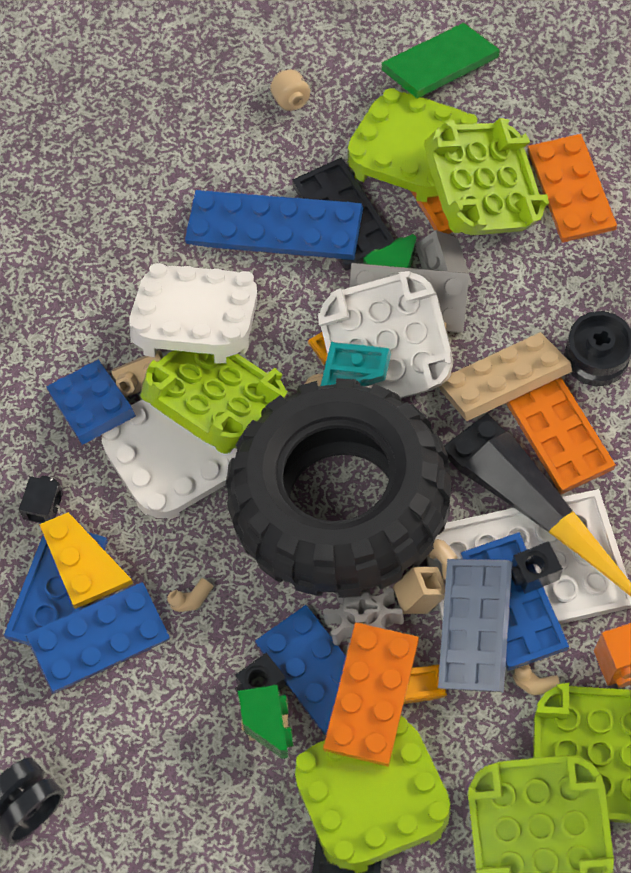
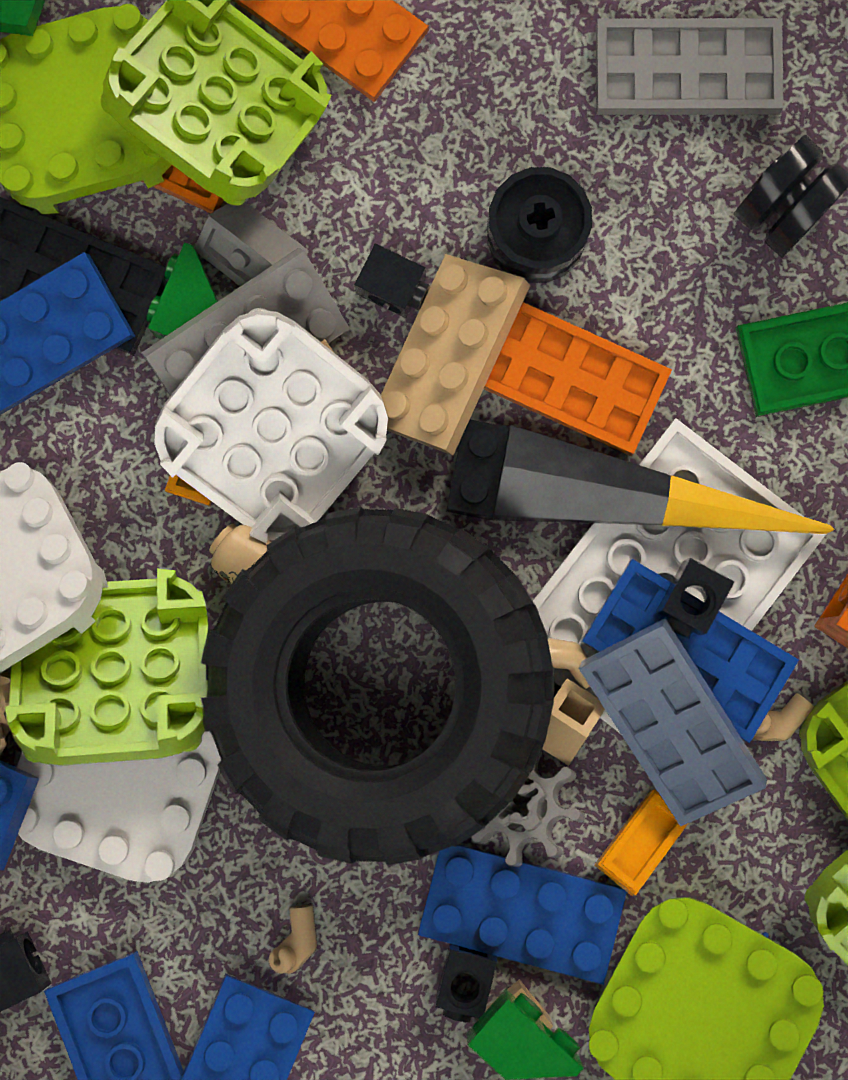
camera: 35 degrees left, 20 degrees up
(82, 562) = (129, 1013): yellow wing -> none
(357, 362) = (263, 501): teal wing -> none
(371, 694) = (620, 909): orange plate -> none
(502, 323) = (392, 281): none -> black brick

